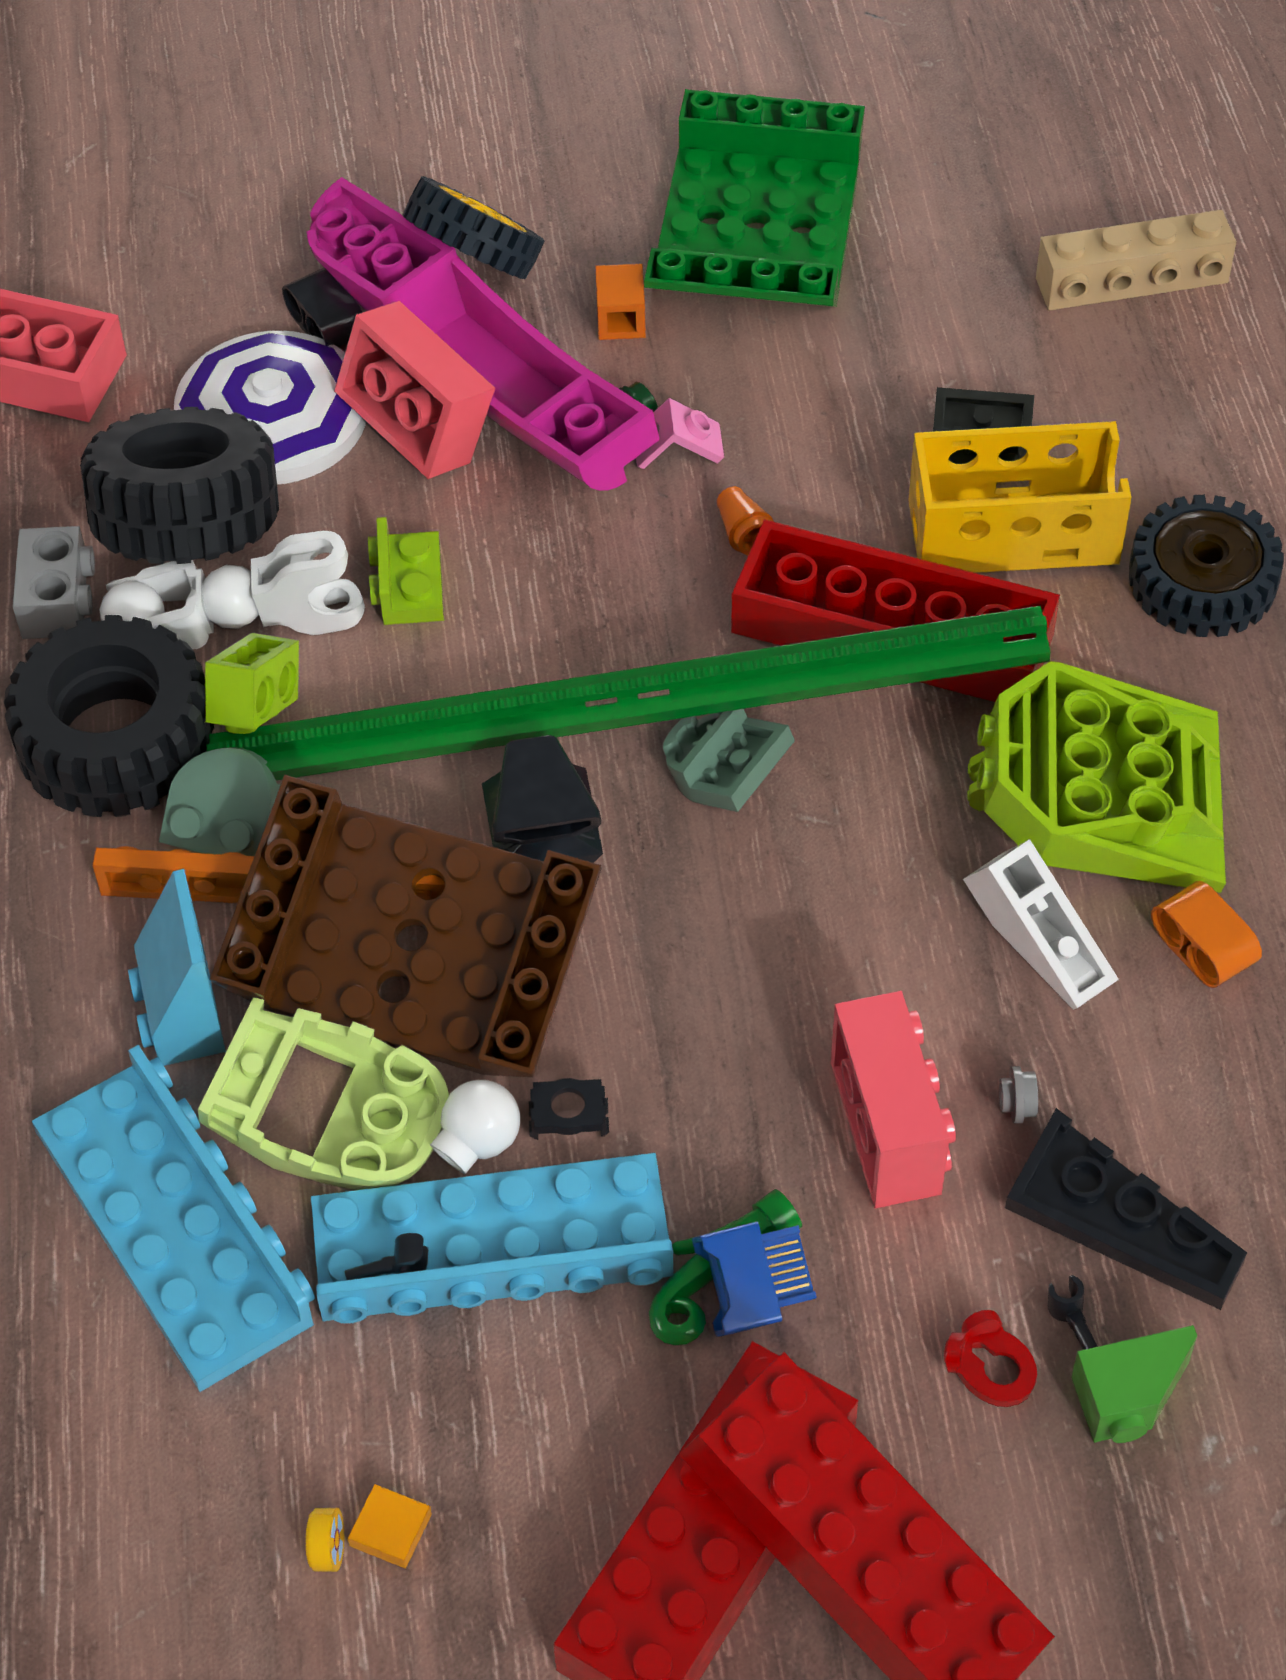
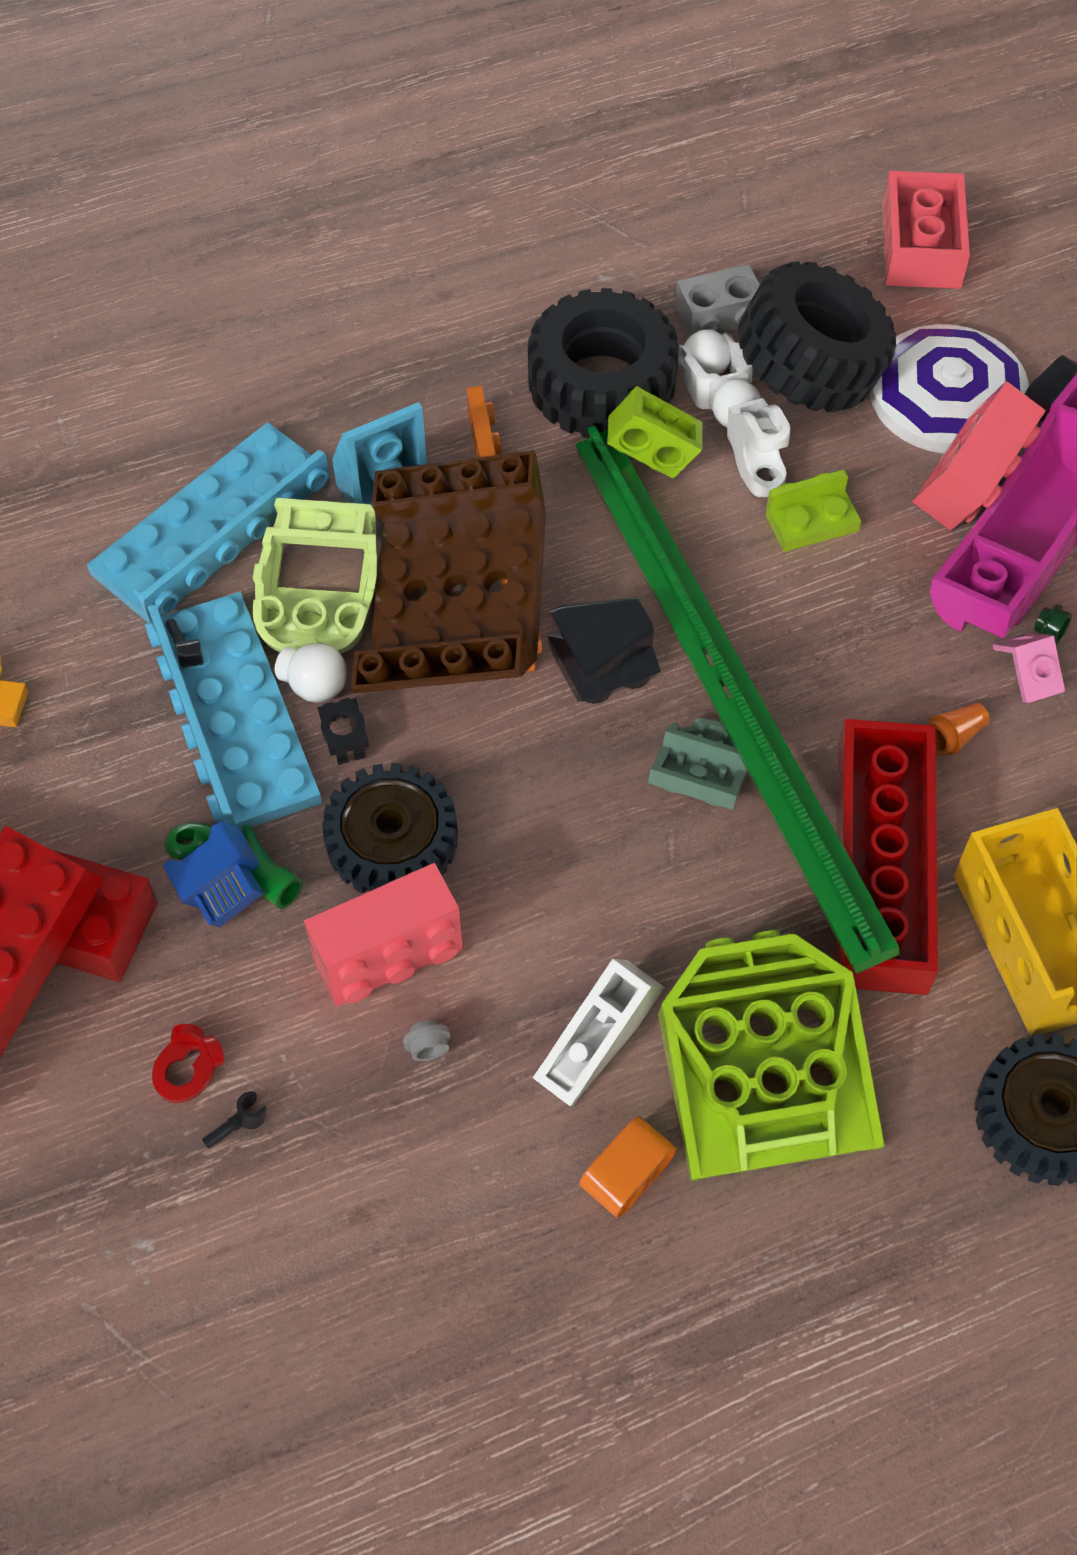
camera: 75 degrees right, 5 degrees up
(220, 803) = (559, 446): sand green slope -> none
(719, 1119) = (381, 801): none -> wheel
(1103, 1205) = (336, 1131): black wing -> none
(1130, 1382) = (173, 1168): bright green slope -> none

